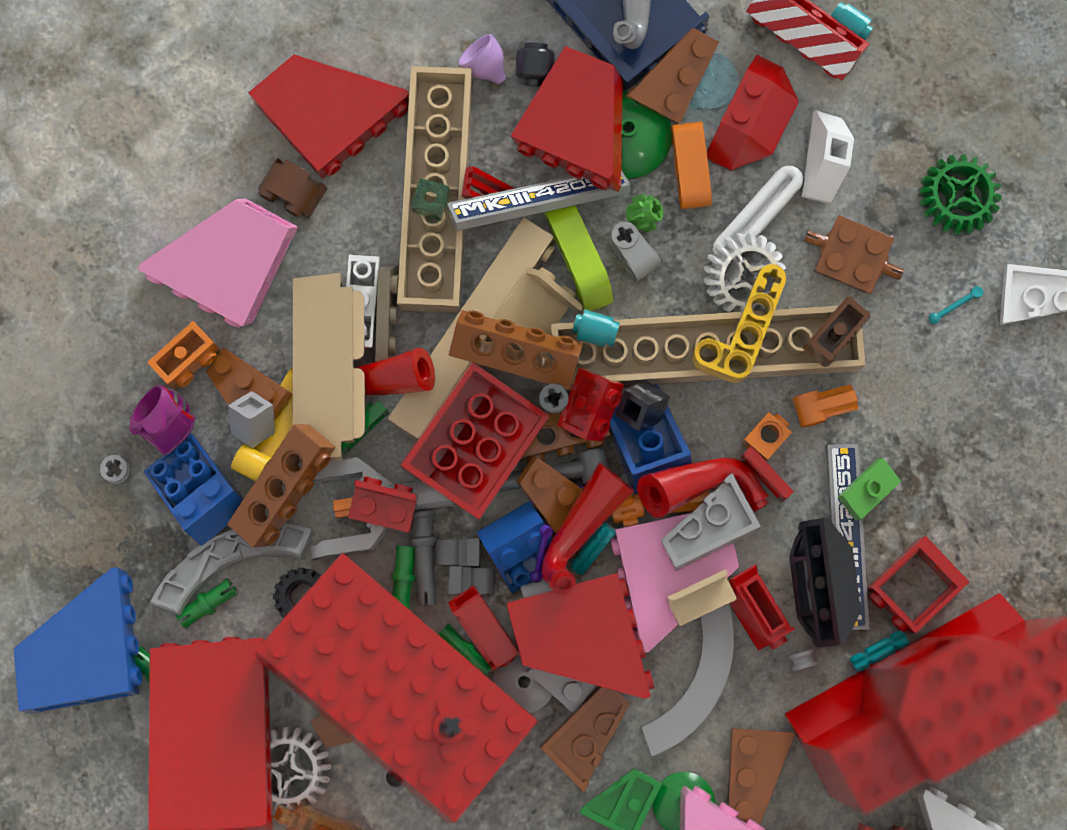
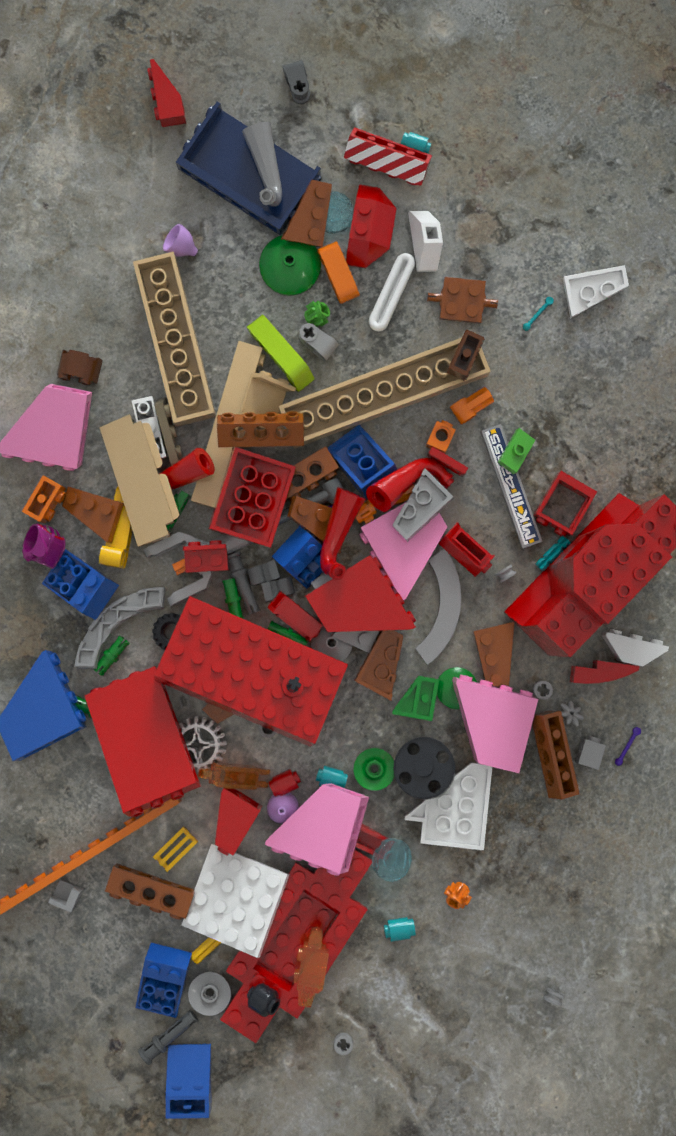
camera: 20 degrees left, 5 degrees up
(105, 471) = (25, 593): light grey bush -> none
(250, 517) = (127, 572): dark orange brick -> none
(251, 419) = (102, 527): light grey panel -> none
(327, 110) = (86, 307): red slope -> none
(436, 208) = (177, 354): clear green piece -> none
(481, 181) = (209, 326): red tile -> none
(528, 201) = (244, 325): tile -> none
(534, 63) = (214, 235): black head -> none
(546, 394) = (295, 448): dark grey pin -> none
(546, 532) = (316, 542): dark purple hinge -> none
(576, 120) = (253, 265): red slope -> none
(590, 405) = (320, 451): red bracket -> none
(592, 548) = (349, 544): teal axle -> none
(595, 328) = (308, 400): teal brick -> none
(642, 405) = (354, 441): black brick -> none
(701, 598) = (429, 554): tan panel -> none
(723, 282) = (407, 325): white gear -> none
(748, 322) = (406, 365): yellow beam -> none
(824, 582) = (505, 520): black wedge -> none
(969, 202) = (527, 242): green gear -> none

